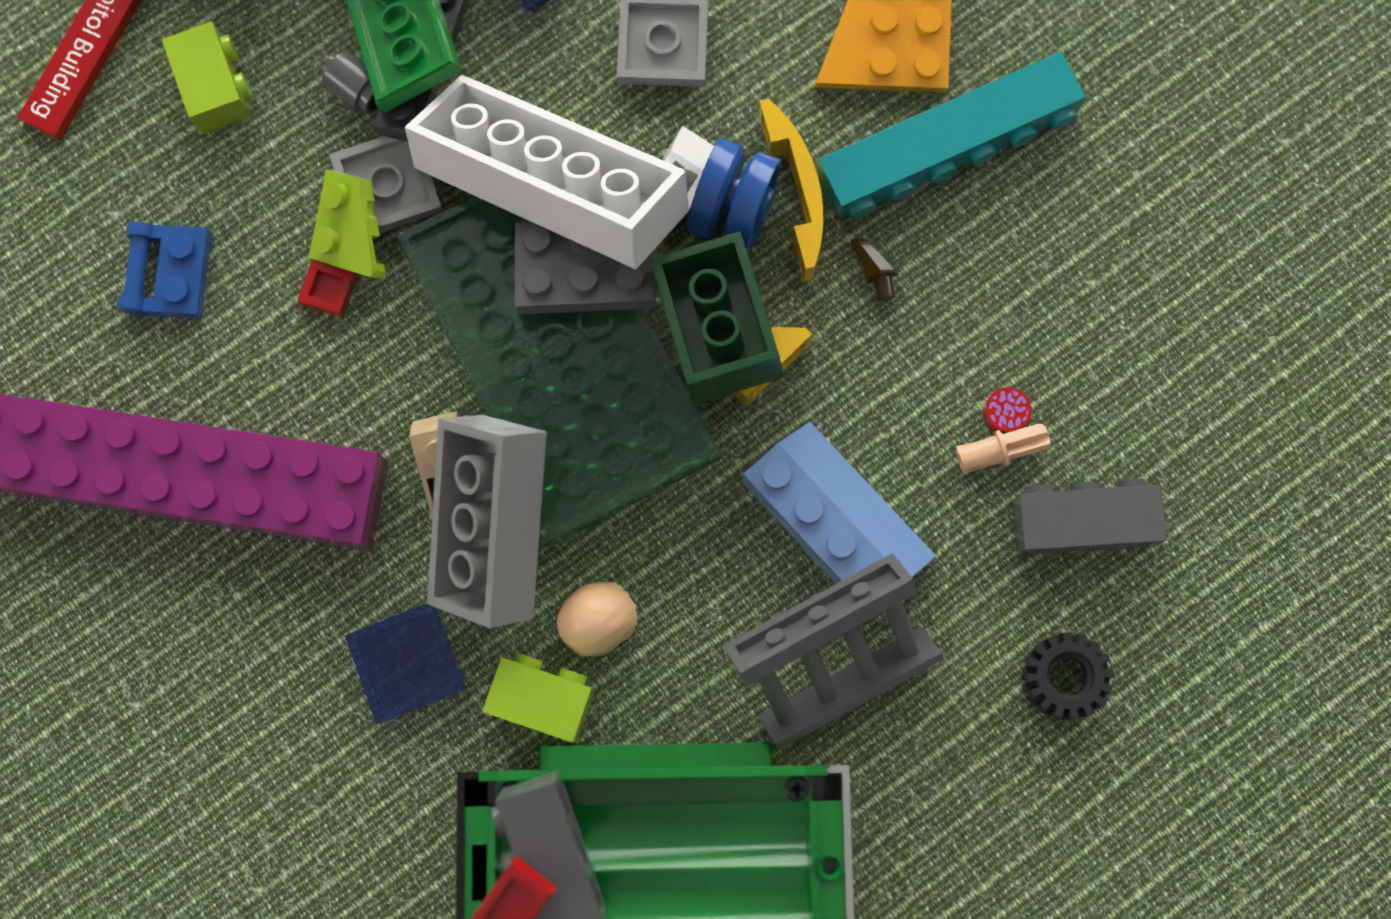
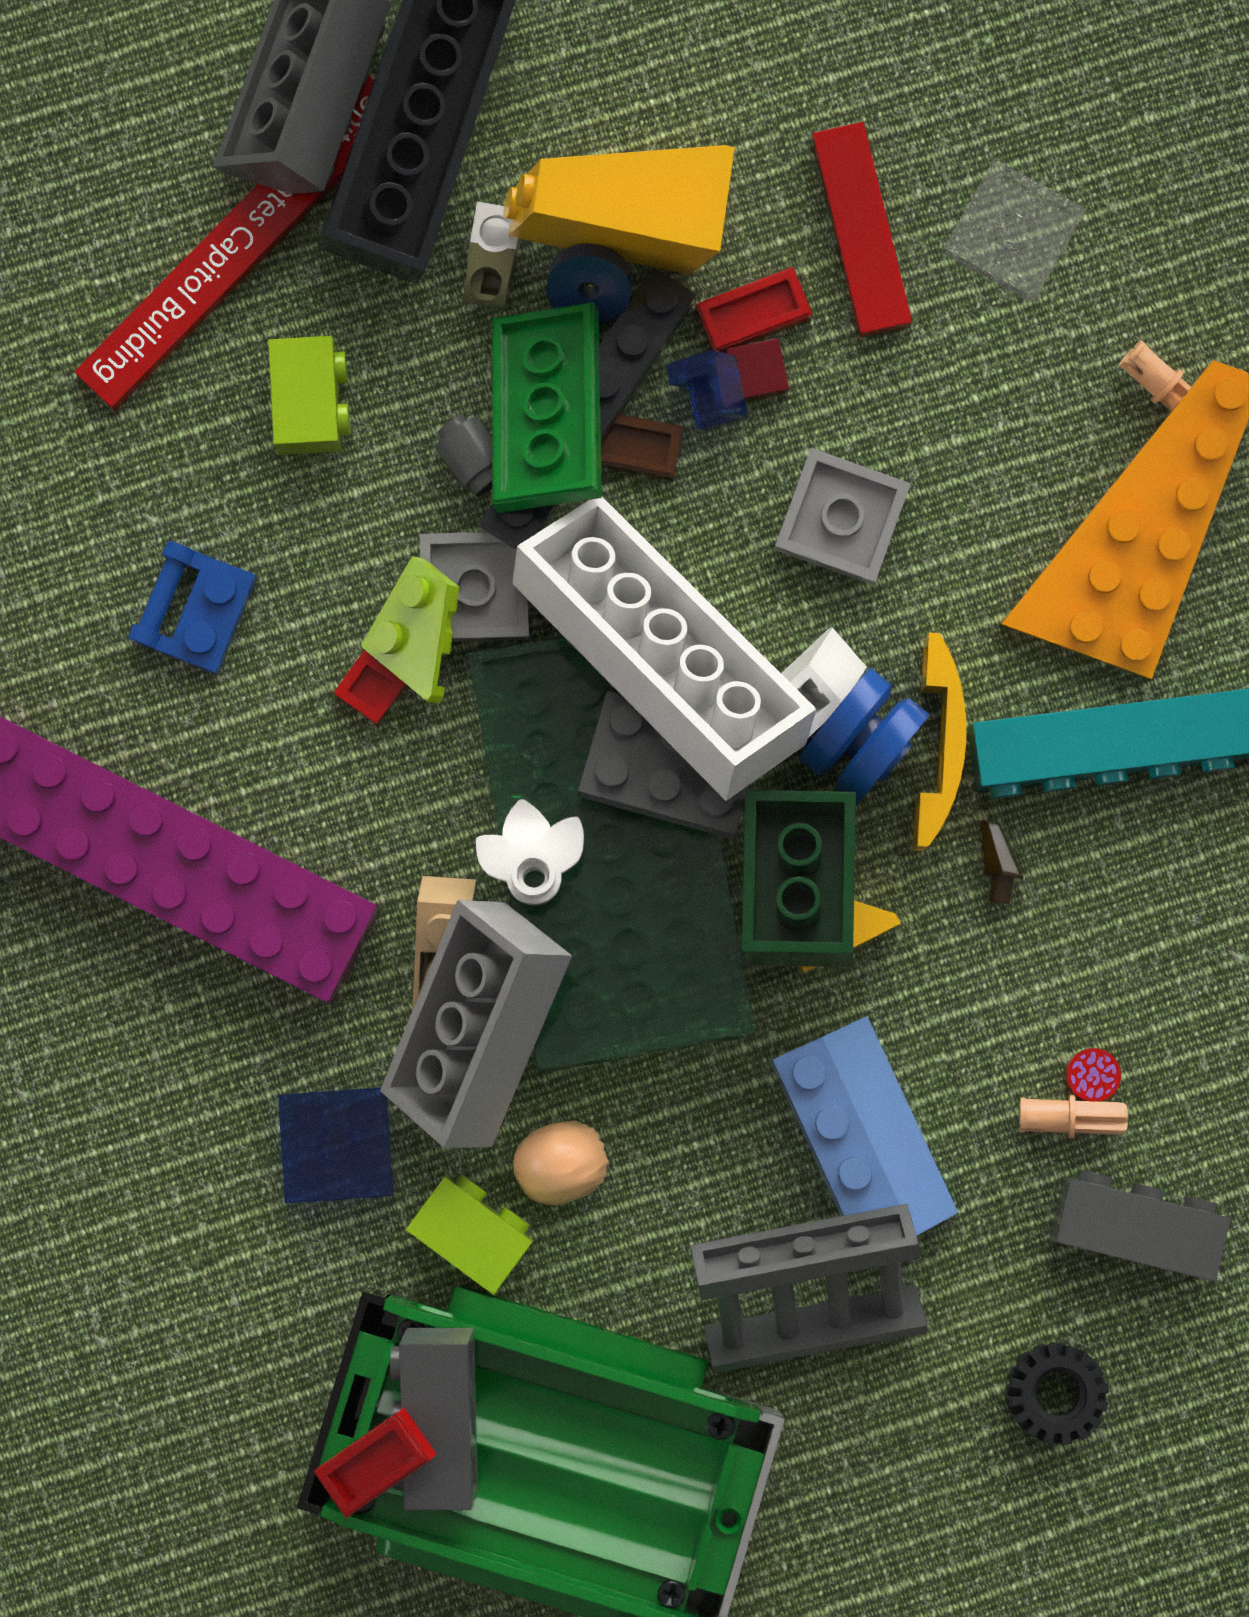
camera: 10 degrees right, 5 degrees up
(488, 39) = (642, 447): none -> reddish brown tile
(490, 364) = (530, 846): none -> white plate

